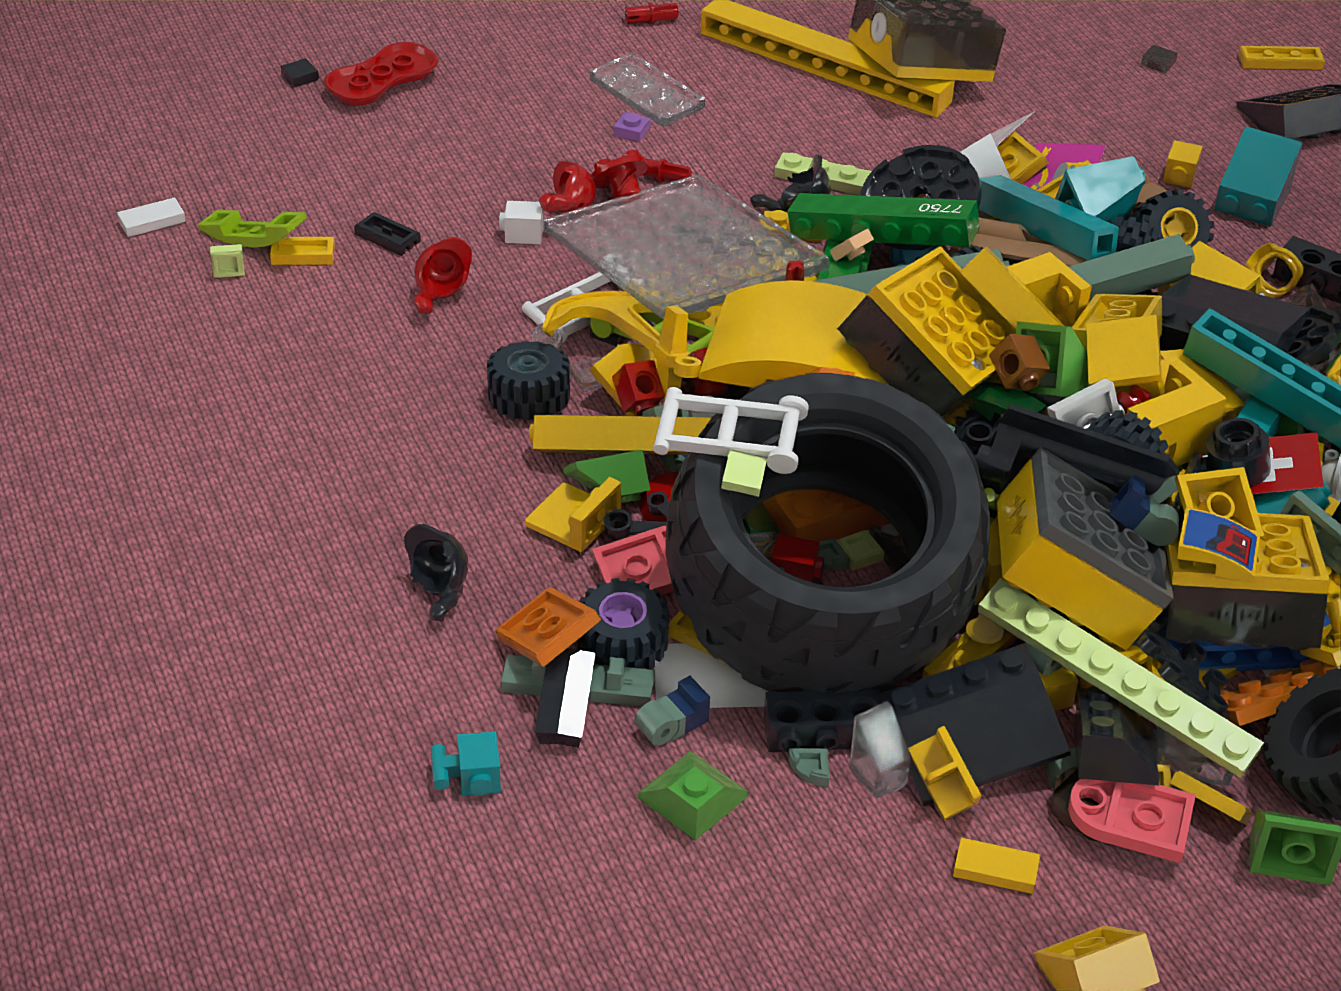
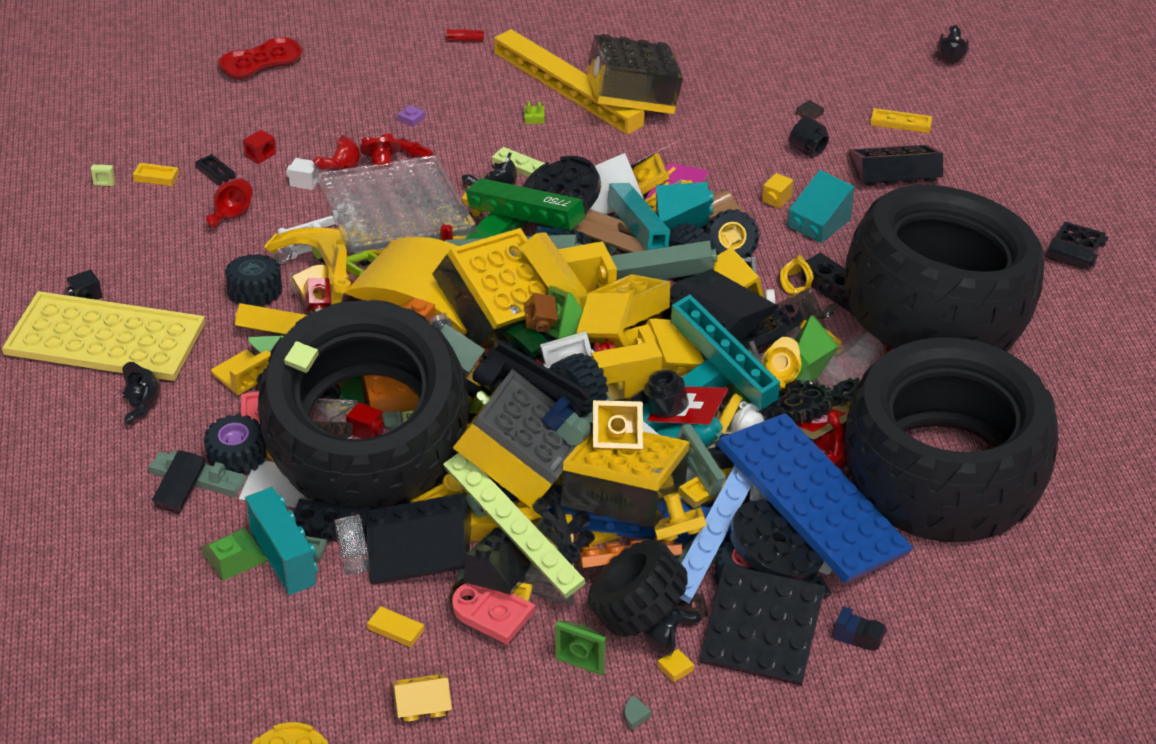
camera: 15 degrees right, 0 degrees up
(151, 217) = (70, 139): white tile -> none
(229, 228) = (116, 152): lime slope -> none
(275, 426) = (84, 285): none -> black brick
(299, 72) = (209, 50): black tile -> none
(334, 492) = (104, 335): none -> light yellow plate
(440, 193) = (259, 146): none -> red brick
(475, 764) = (108, 513): teal brick -> none
(547, 626) = (184, 436): orange tile -> none
(647, 89) = (433, 90): clear plate -> none
(674, 713) = (233, 505): leg -> none
(772, 761) = (281, 540): none -> teal piece
(779, 458) = (324, 351): white piece -> none
(800, 104) = (534, 114): none -> lime tile
(853, 246) = (496, 219): light nougat plate -> none
(945, 774) = (385, 566): yellow panel -> none
(1187, 89) = (809, 136): none -> black piece
(1211, 797) = (547, 606): yellow tile -> none
(1221, 542) = (599, 447): slope -> none

